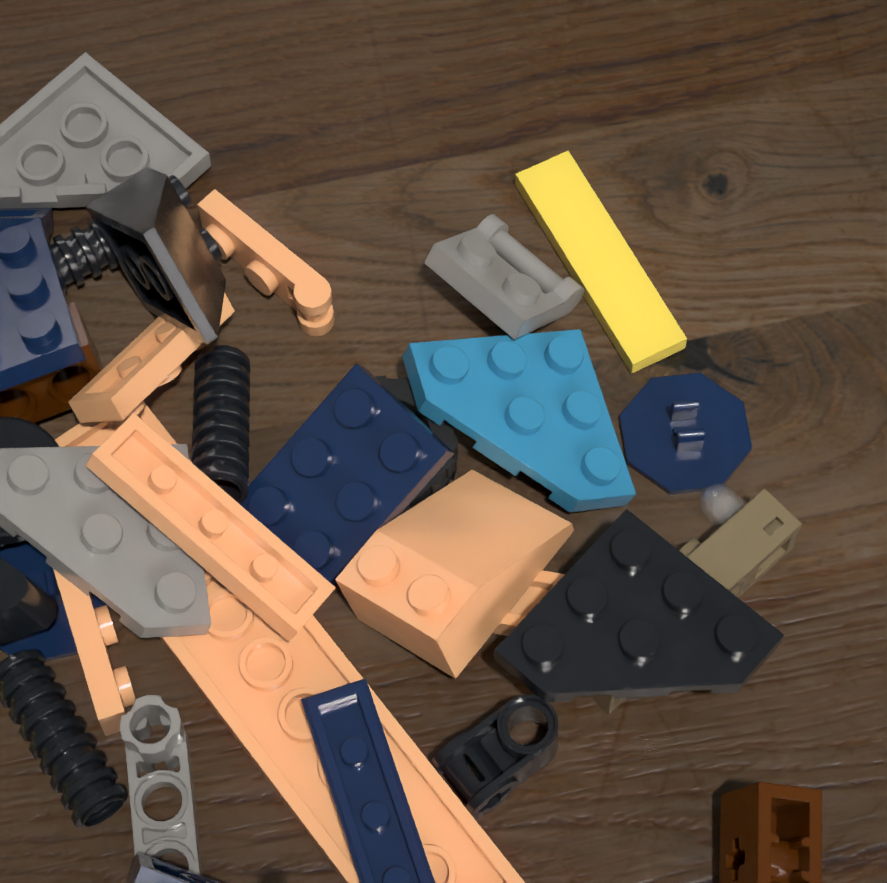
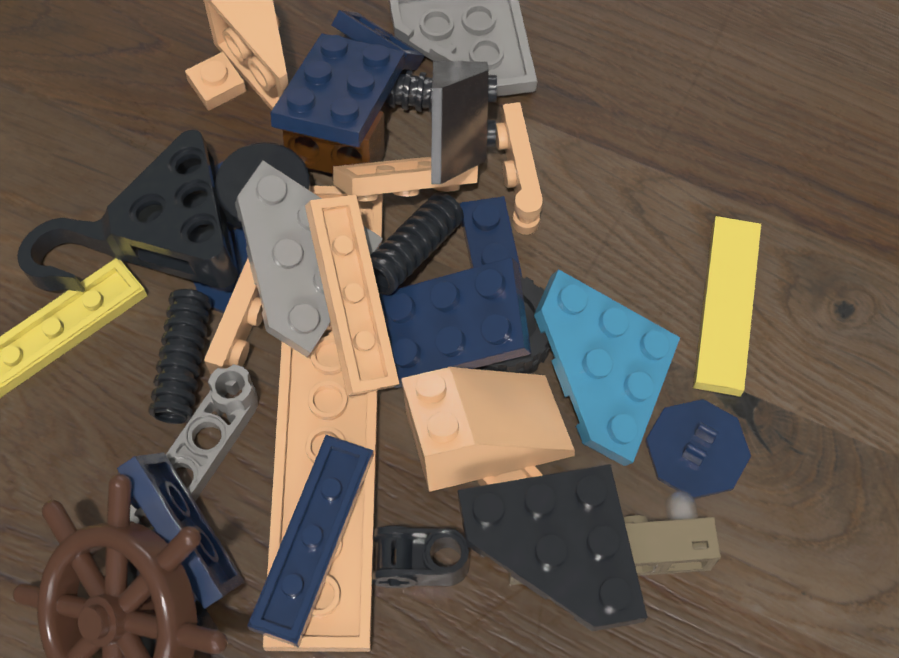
camera: 35 degrees right, 0 degrees up
(291, 362) = (488, 231): none -> dark blue plate
(503, 278) = (645, 275): light grey plate -> none

